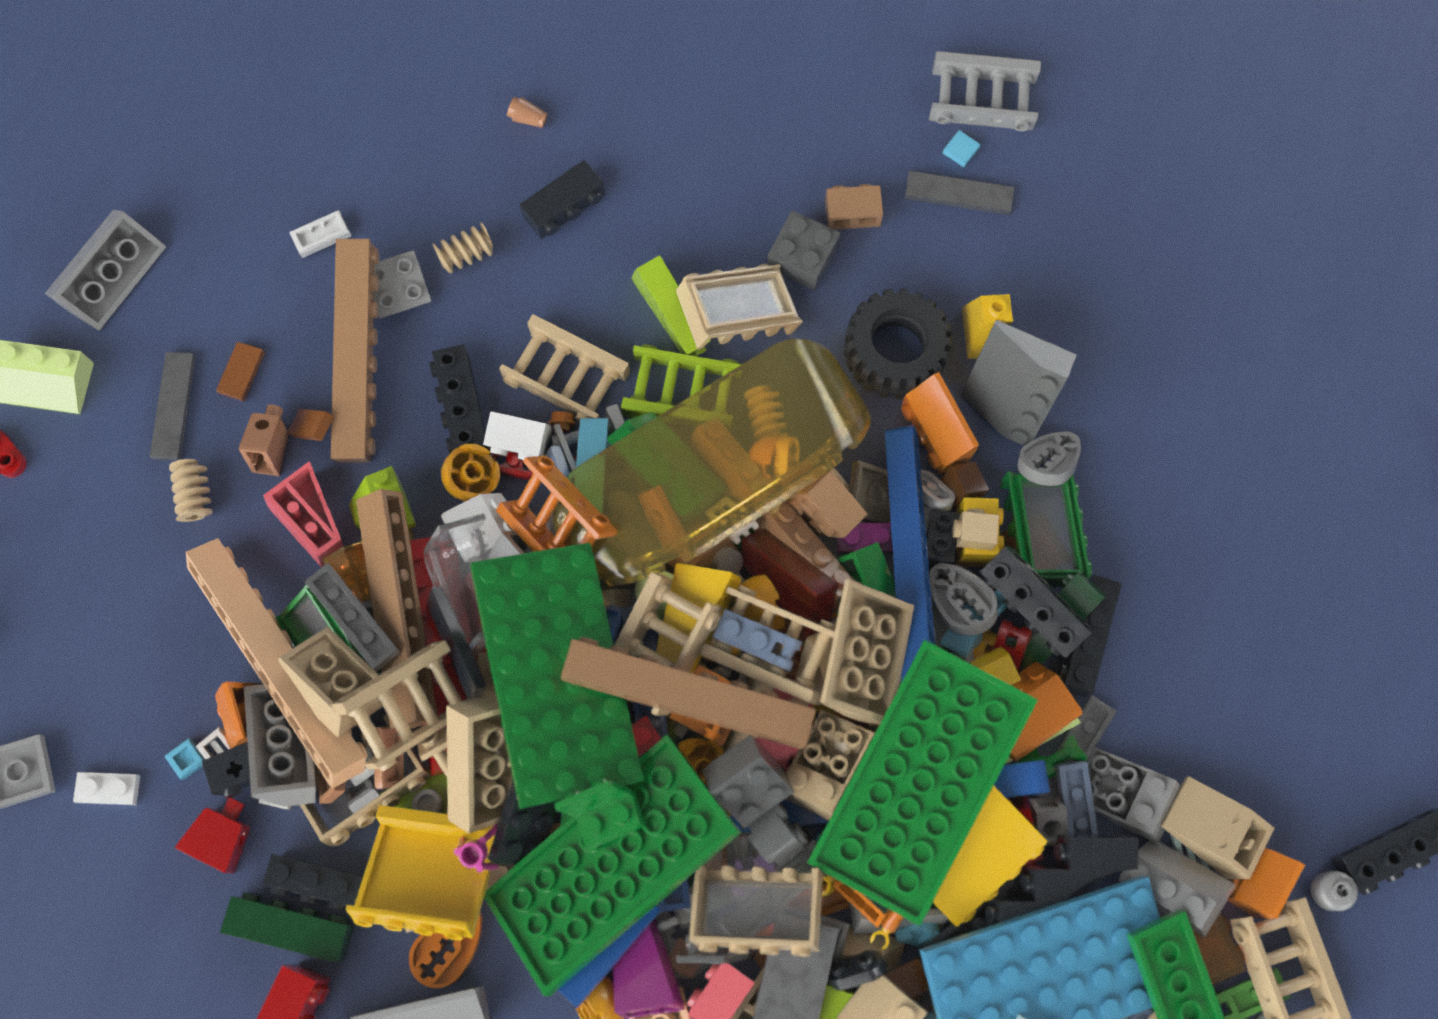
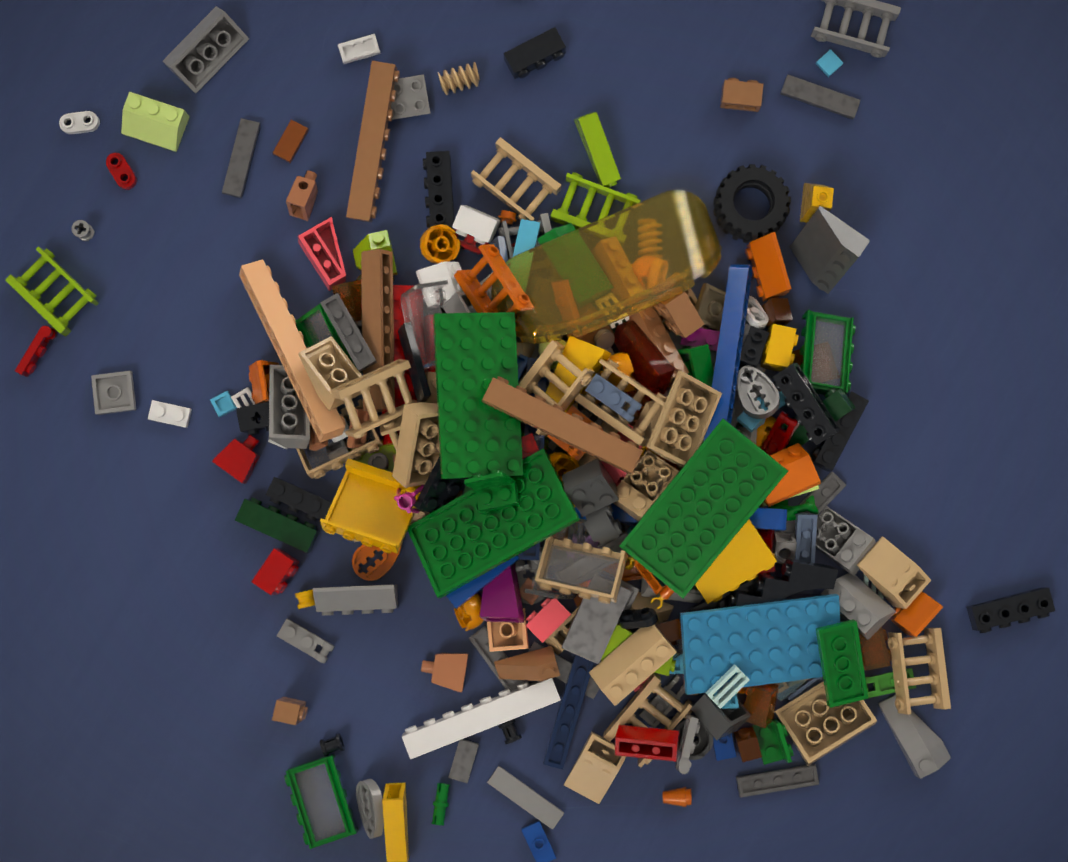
camera: 15 degrees right, 10 degrees up
(189, 490) = (246, 221): tan piece -> none
(310, 424) = (334, 190): dark orange tile -> none
(737, 304) = (644, 155): window -> none
(803, 249) = (699, 122): dark grey brick -> none
(917, 935) = (682, 604): medium azure tile -> none
(976, 530) = (776, 348): tan brick -> none
(998, 664) = (769, 442): yellow brick -> none
(1060, 447) = (840, 296): light grey piece -> none
(1334, 891) = (956, 623): light grey head -> none

